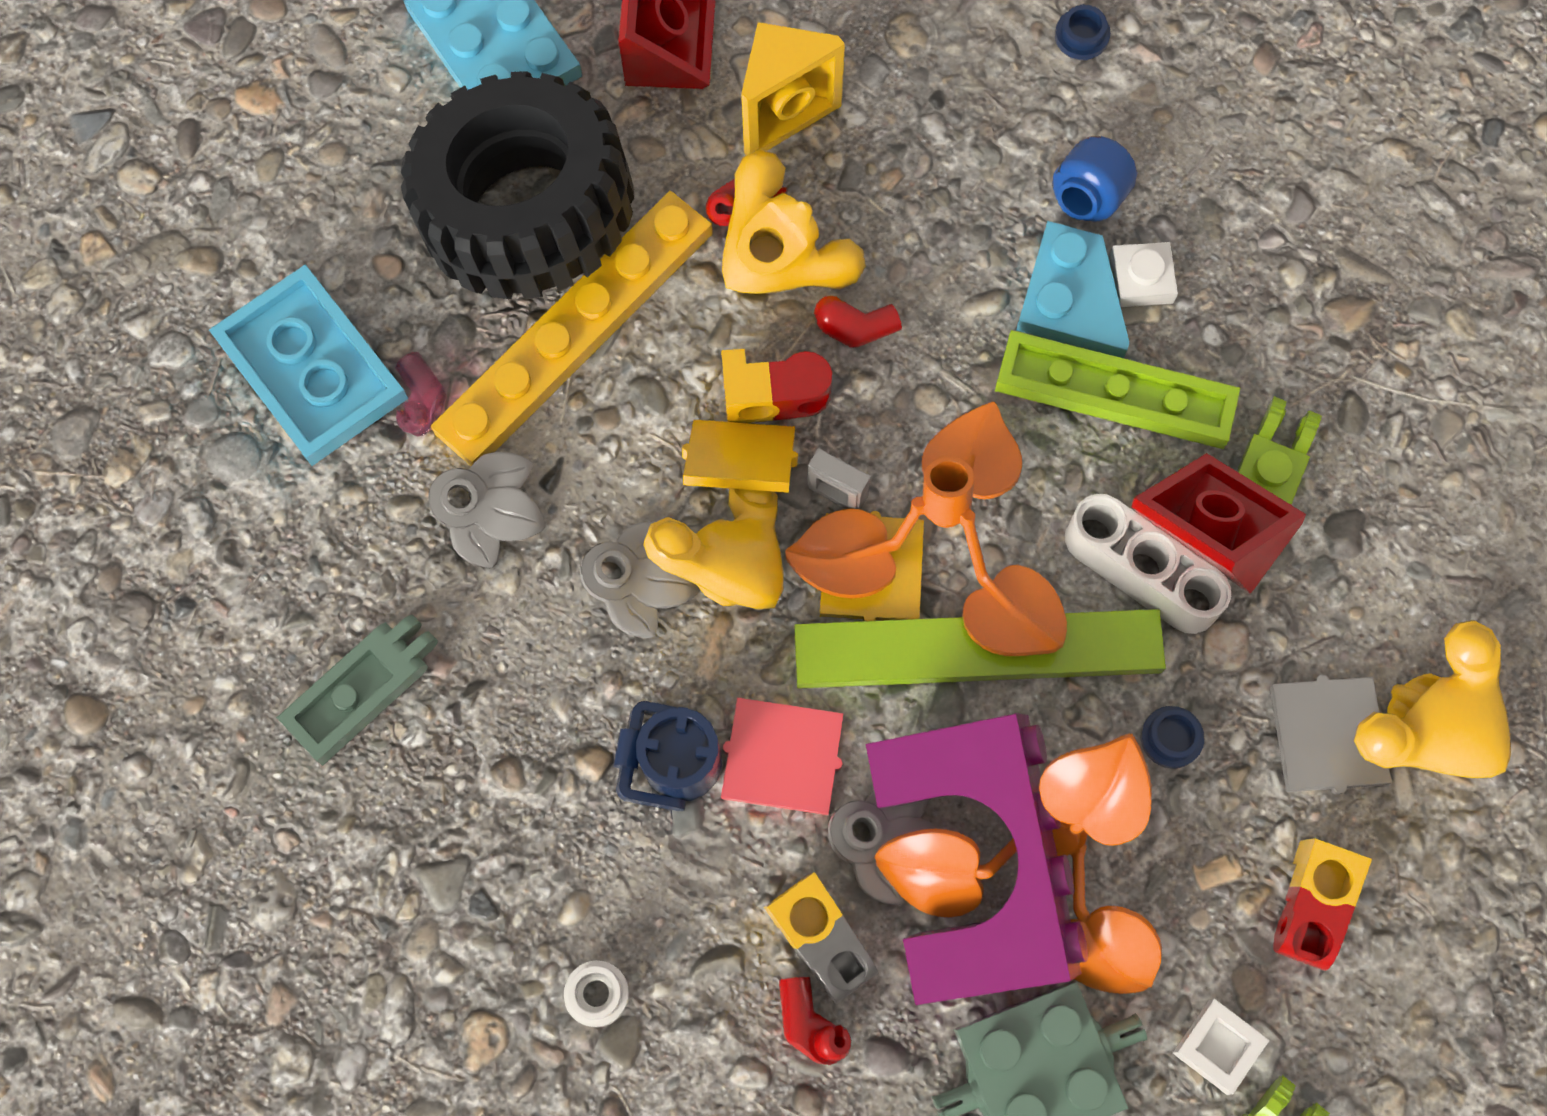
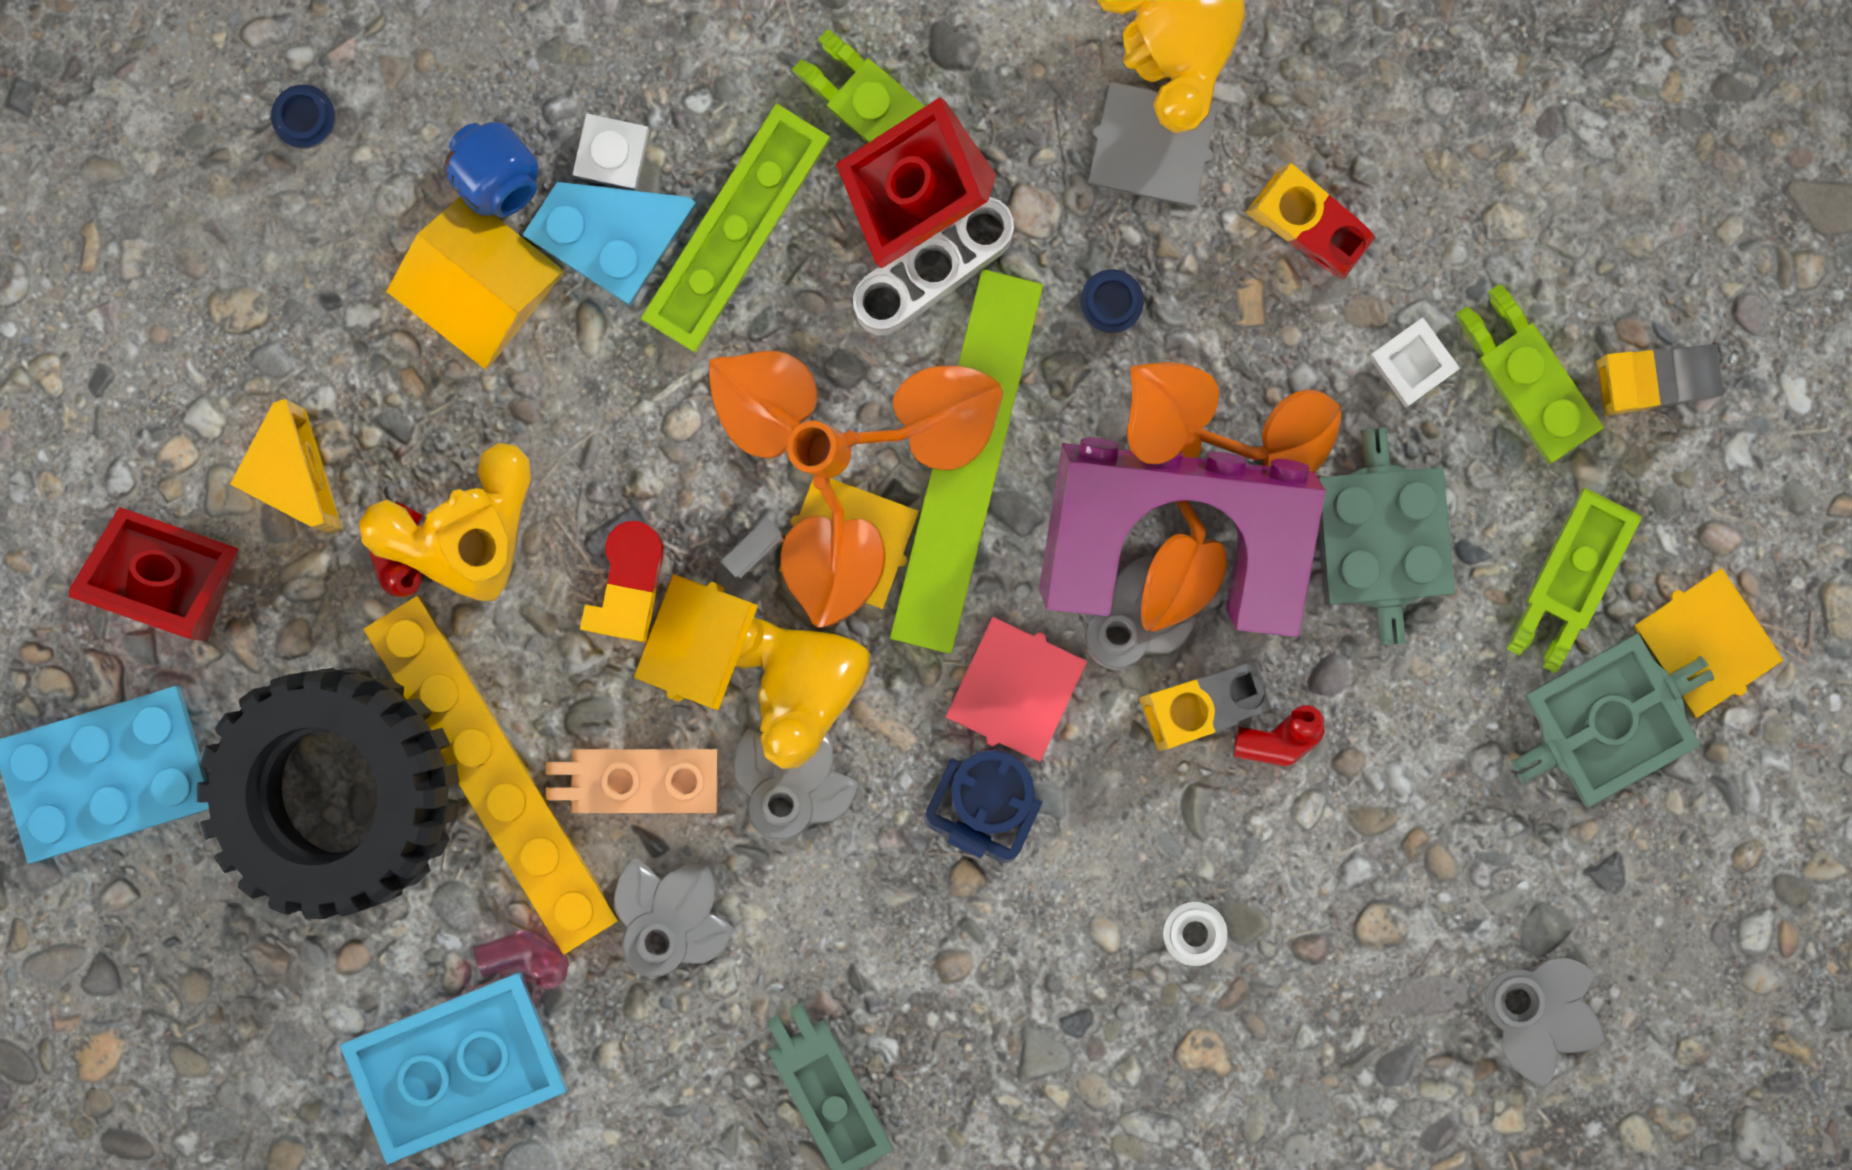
camera: 75 degrees left, 15 degrees up
(603, 451) = (638, 780): none -> light nougat hinge
(852, 326) = (580, 480): red arm -> none
(995, 195) = (473, 280): none -> yellow slope

